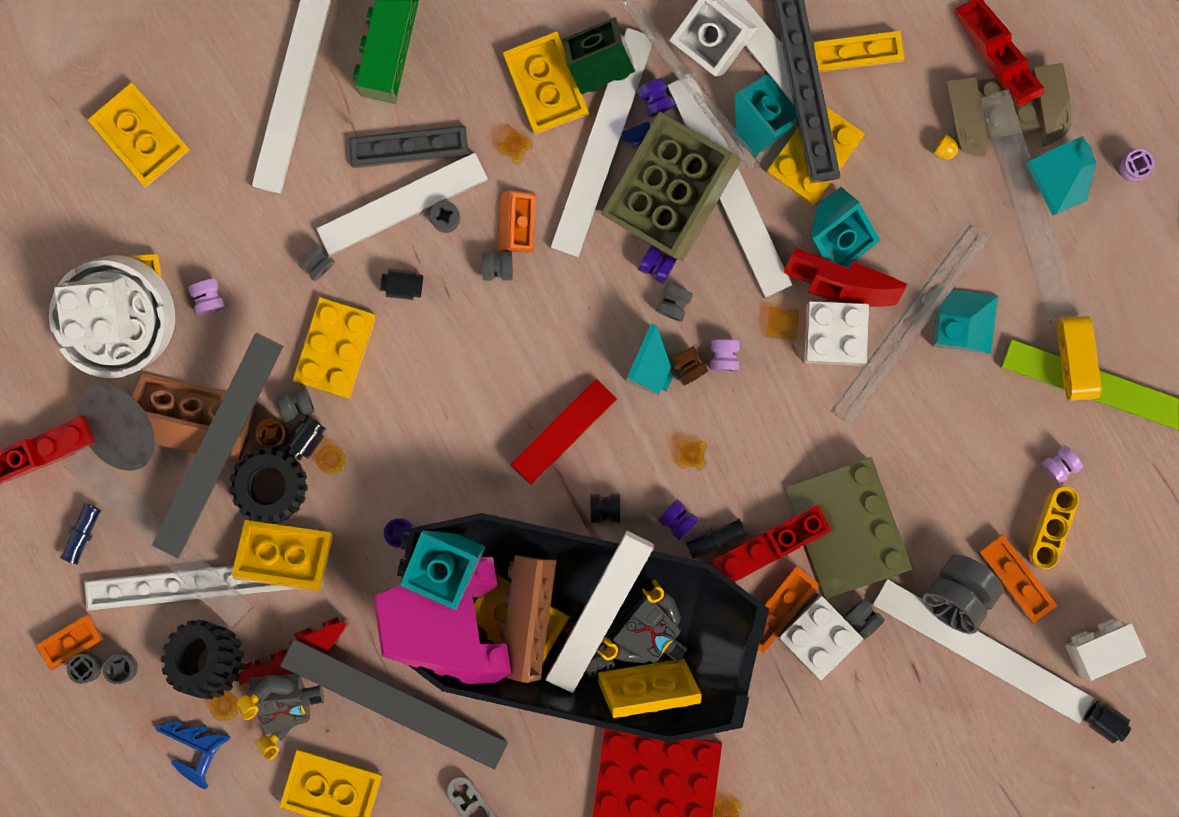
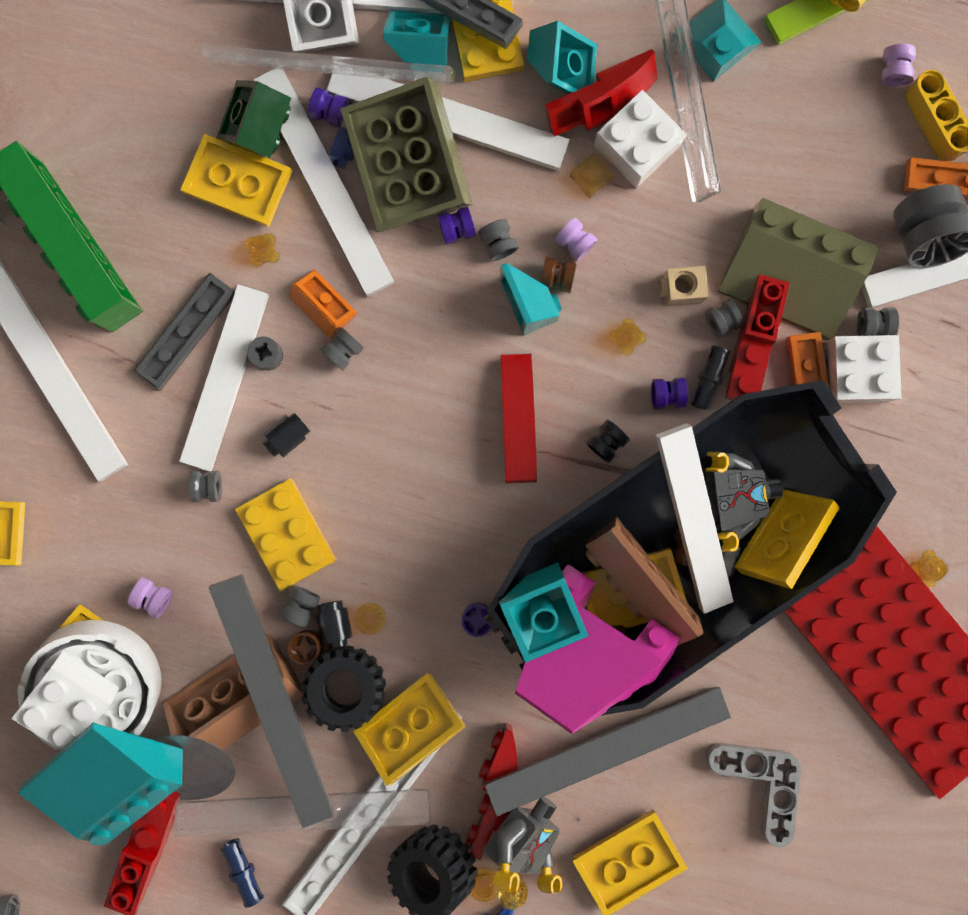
camera: 50 degrees left, 0 degrees up
(63, 385) = (104, 782): none -> teal slope
(237, 730) = (514, 900): none -> clear yellow plate
(766, 509) = (724, 318): none -> dark grey wheel
(775, 464) = (696, 281): none -> tan brick

